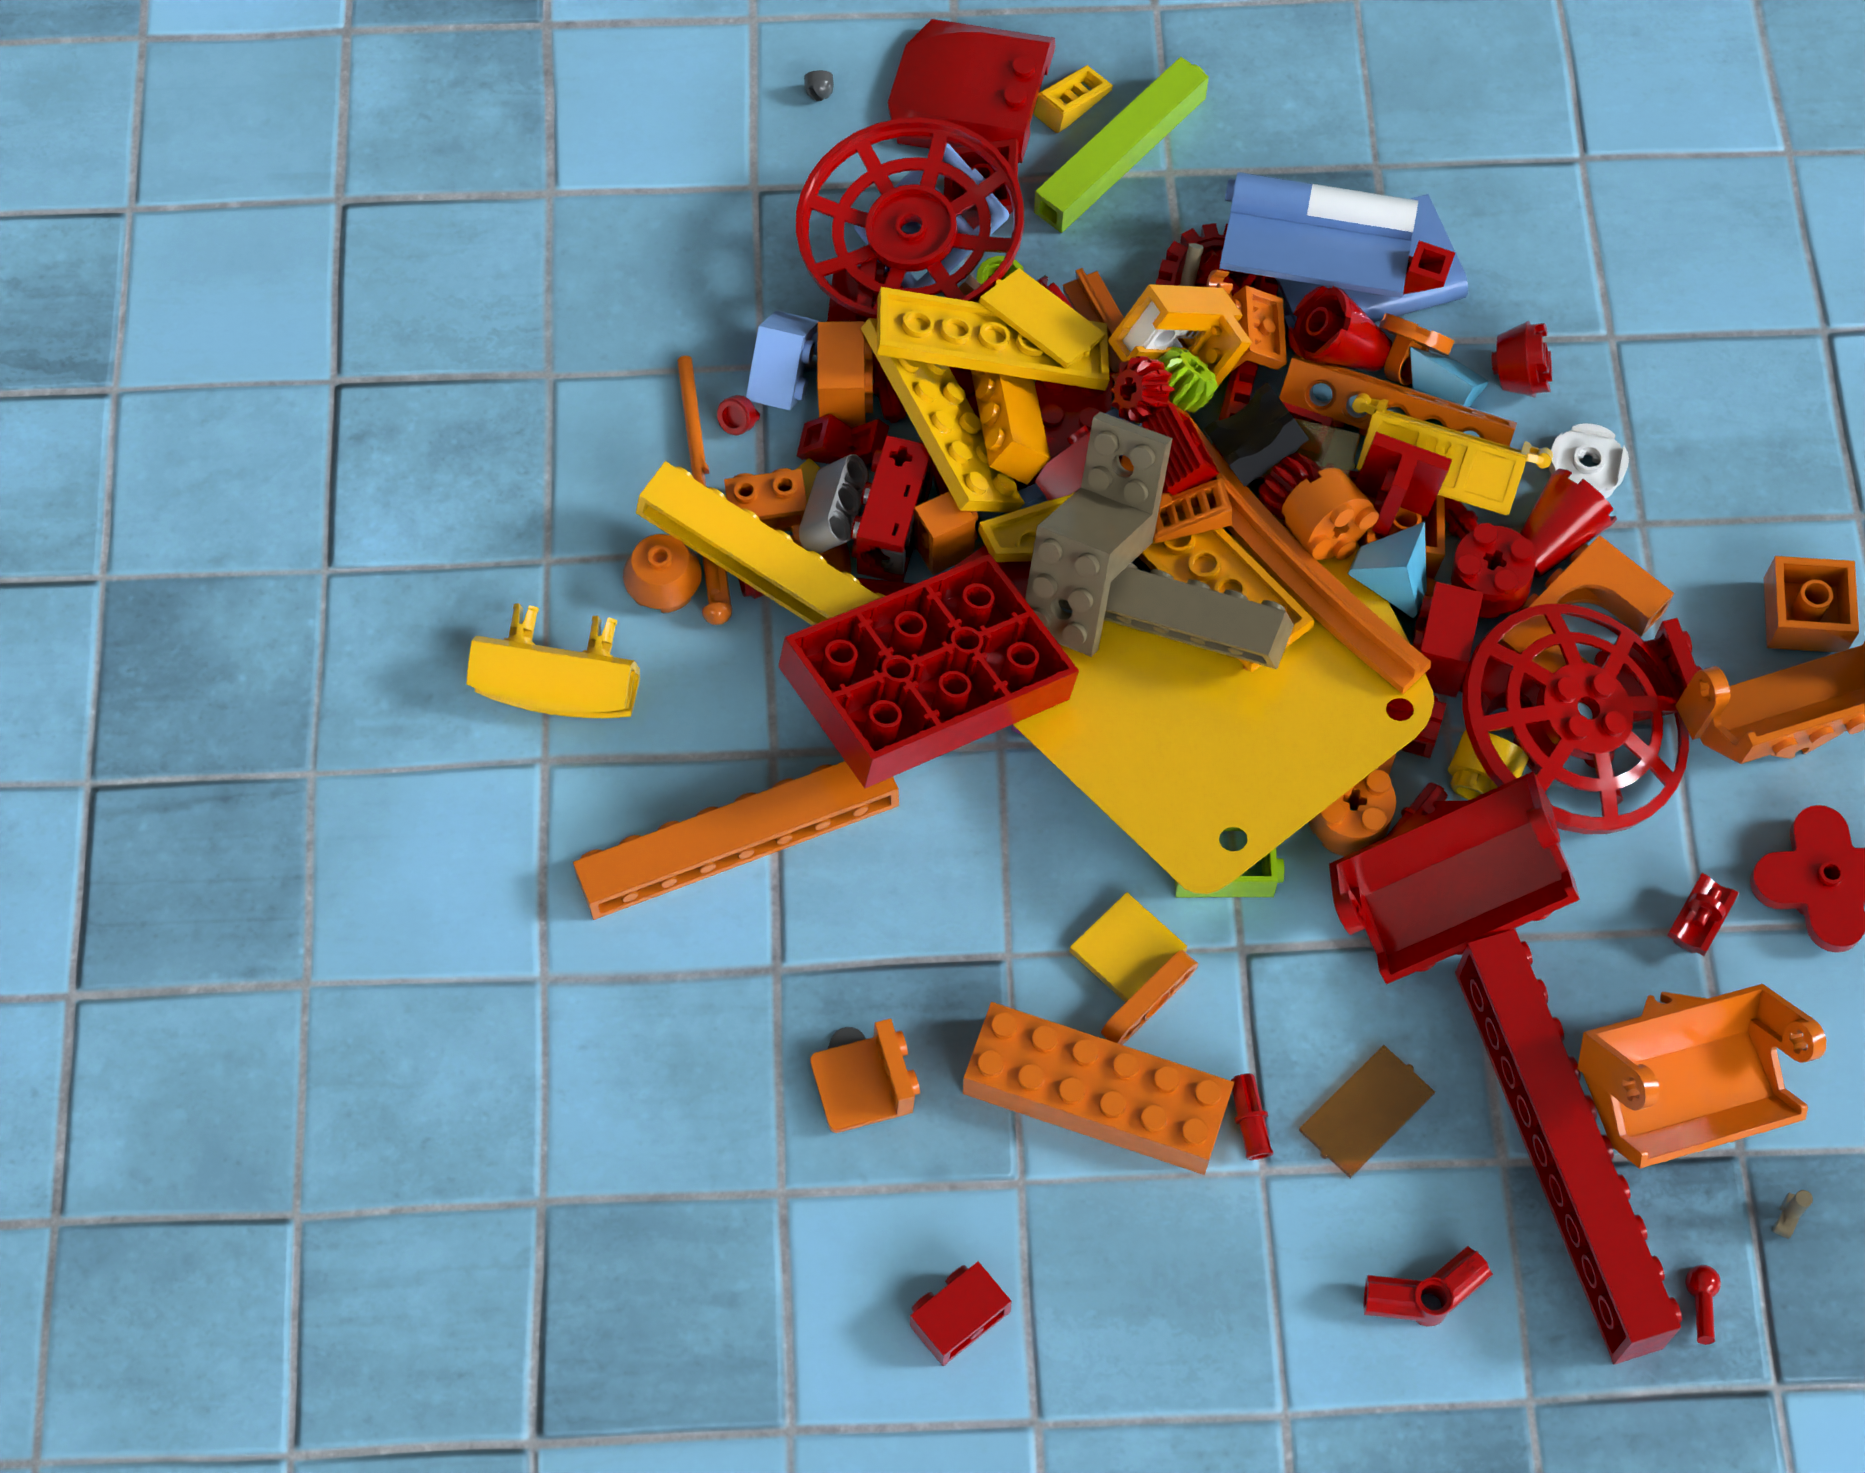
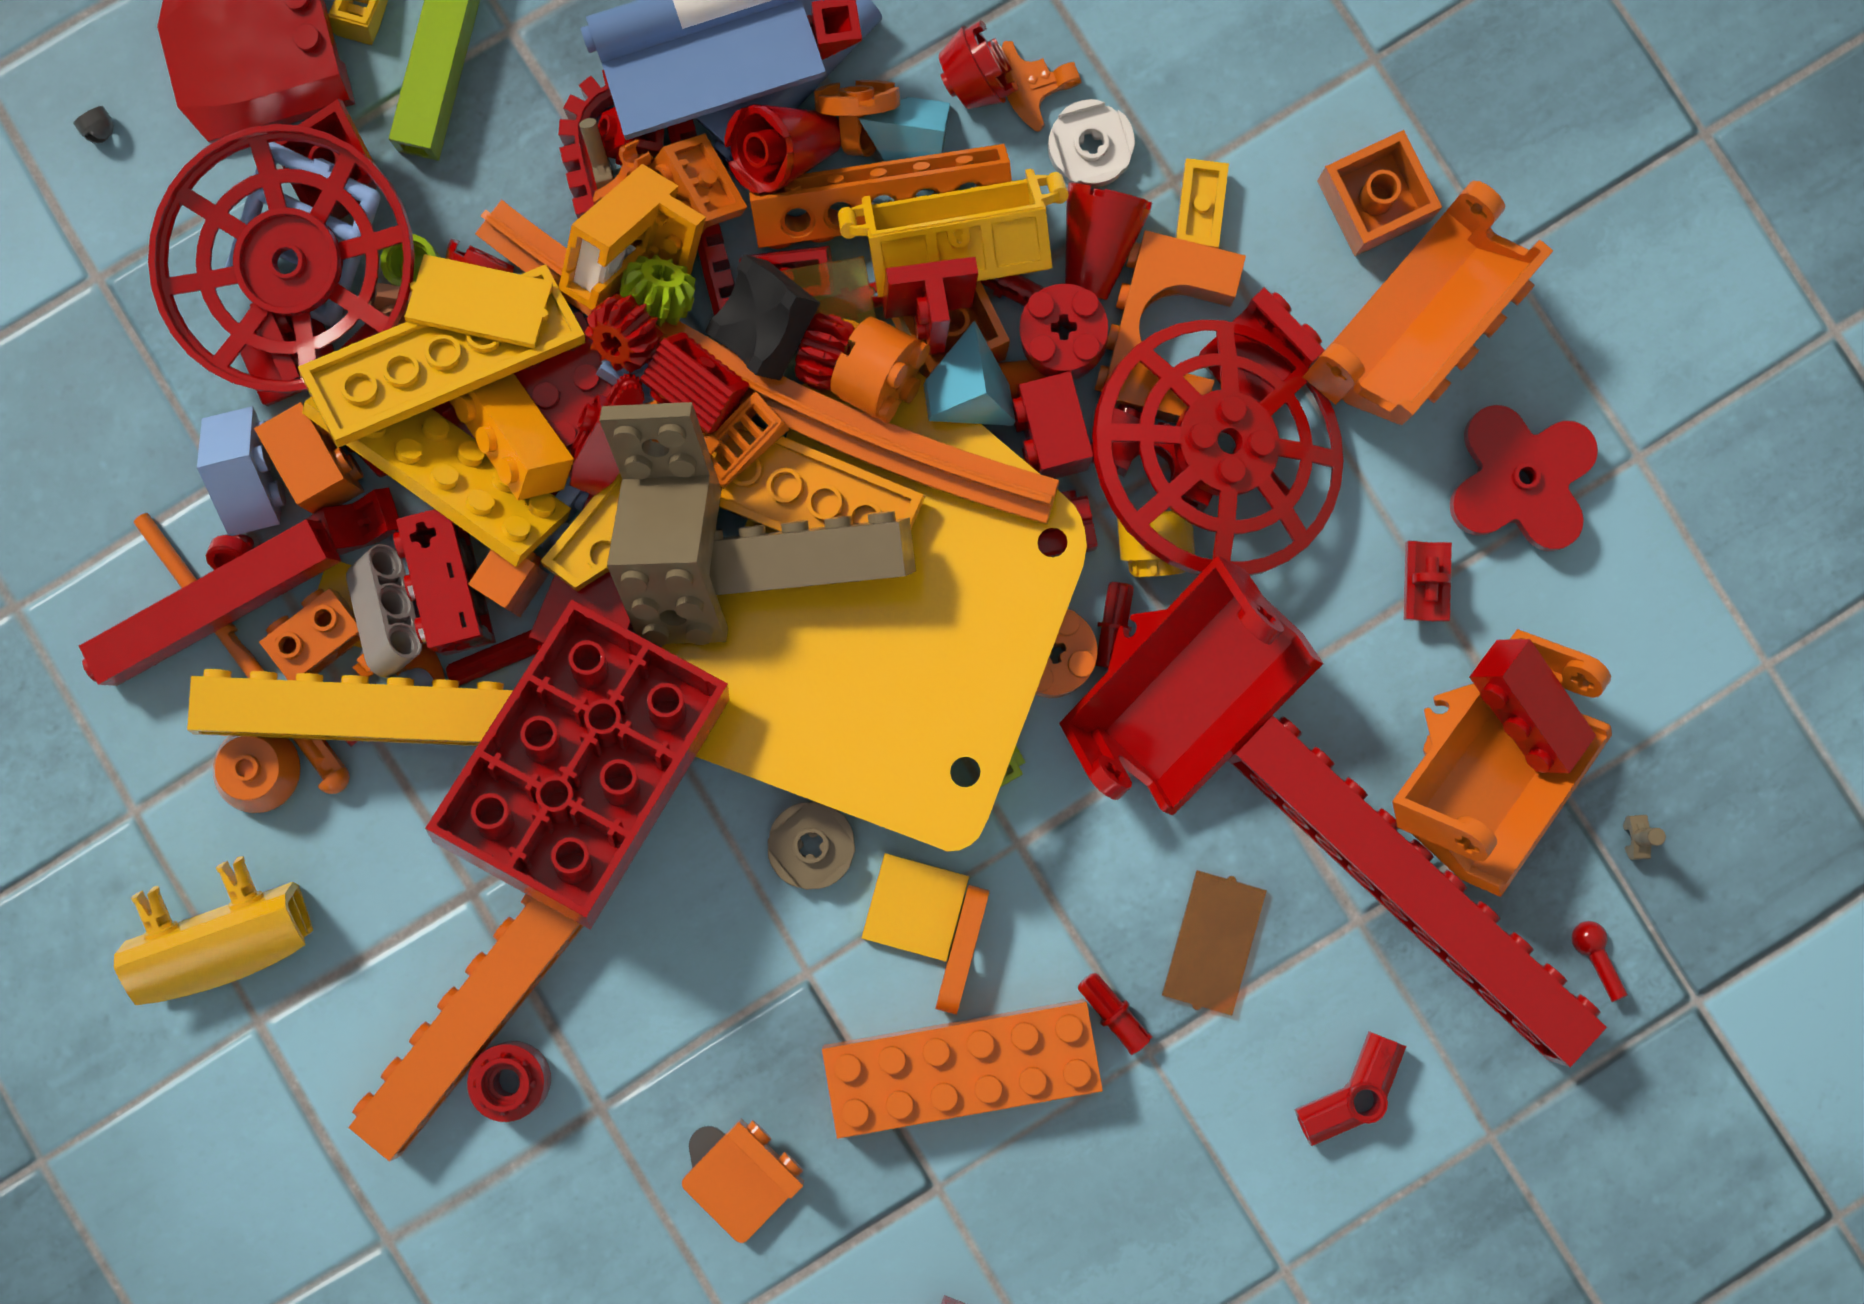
camera: 30 degrees left, 20 degrees up
(703, 434) = (209, 603): none -> red brick
(724, 922) = (487, 1092): none -> red piece
(1069, 878) = (786, 842): none -> dark tan plate
(1566, 399) = (1035, 84): none -> orange piece
(1660, 542) = (1202, 202): none -> yellow plate
(1745, 1042) = (1532, 706): none -> red brick

